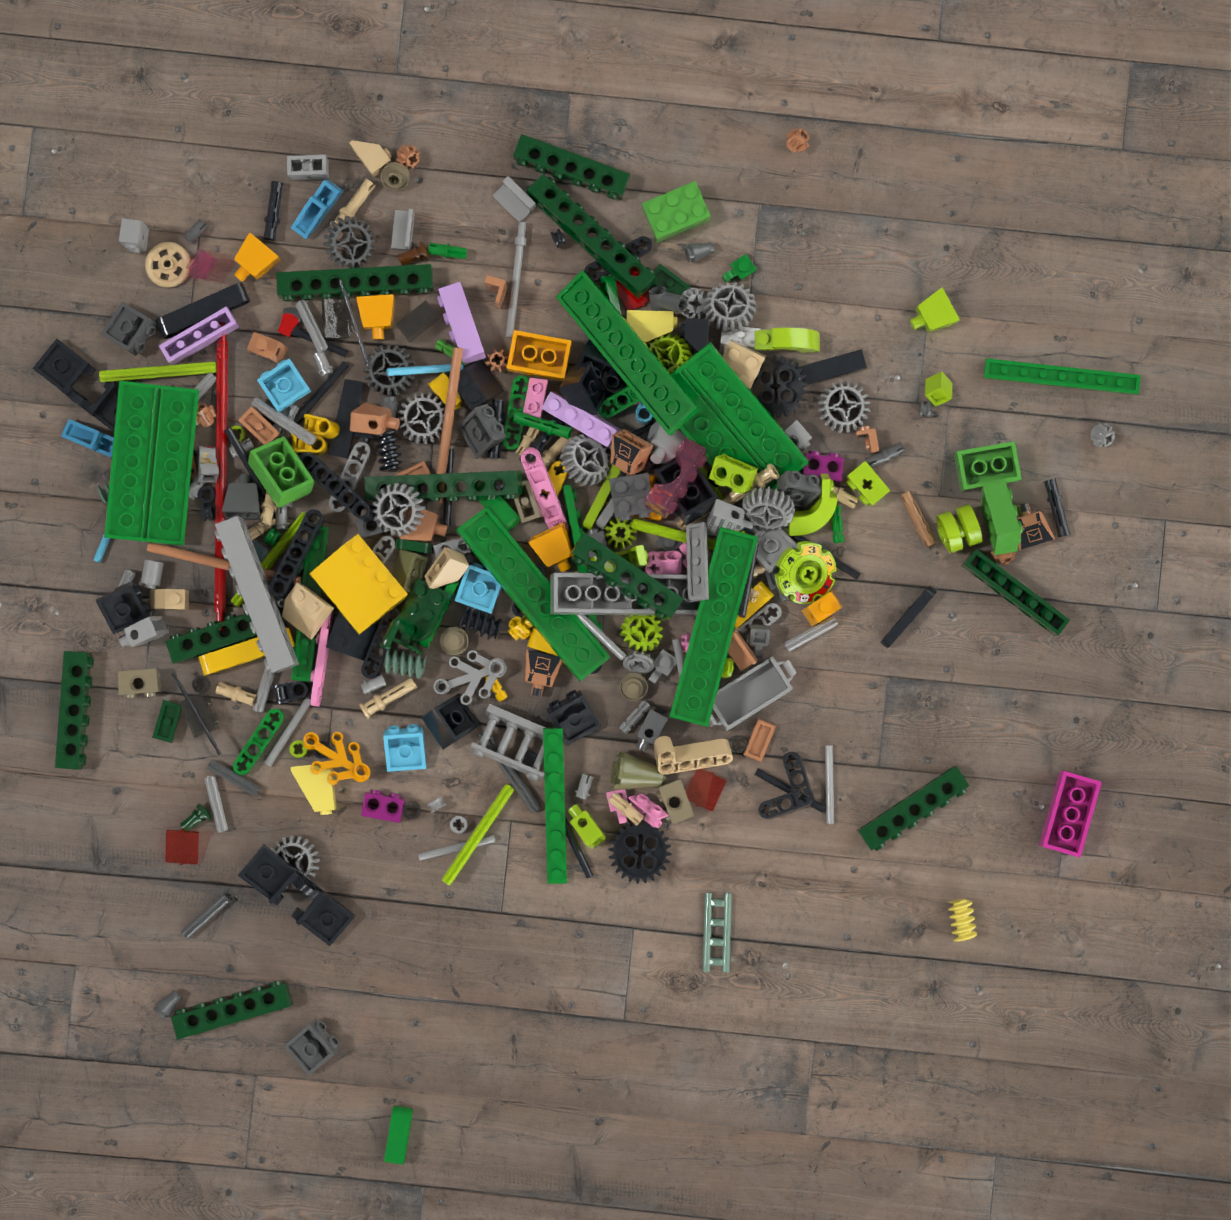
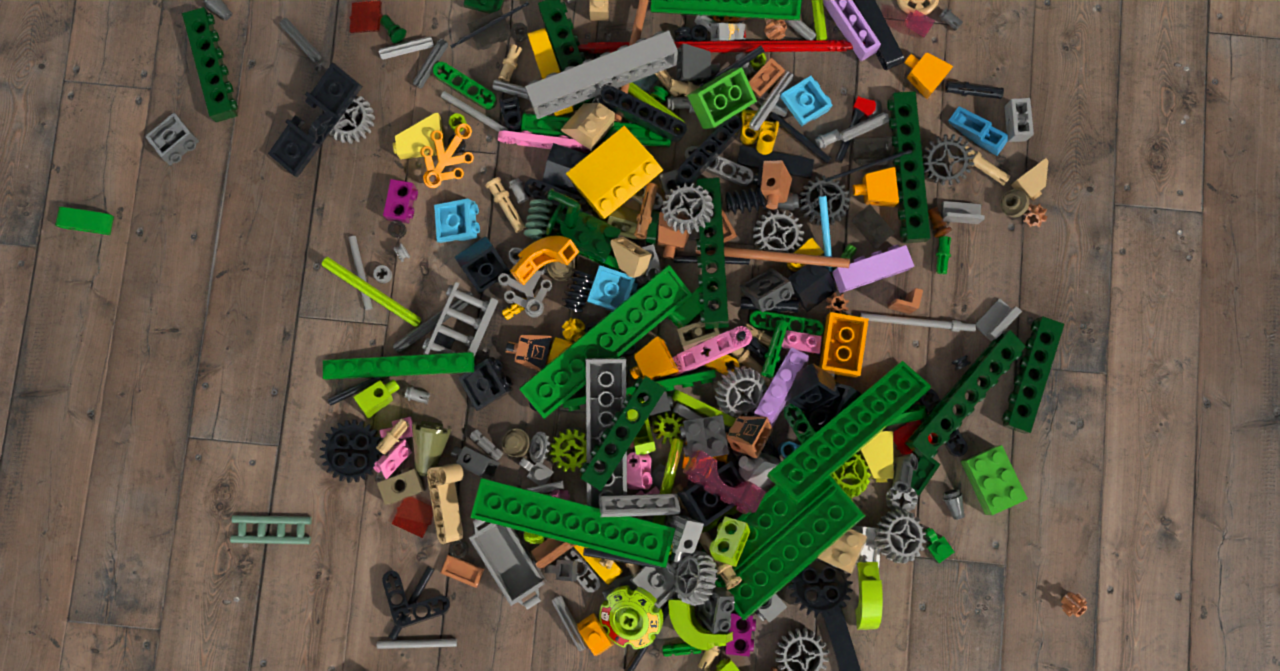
camera: 85 degrees right, 5 degrees down
(266, 348) = (842, 83): nougat torso -> none
(406, 554) = (644, 217): none -> medium nougat pin
(440, 659) = (543, 252): none -> light orange arch
(602, 637) = (563, 410): light grey bar -> none
(695, 333) = (873, 500): black slope -> none

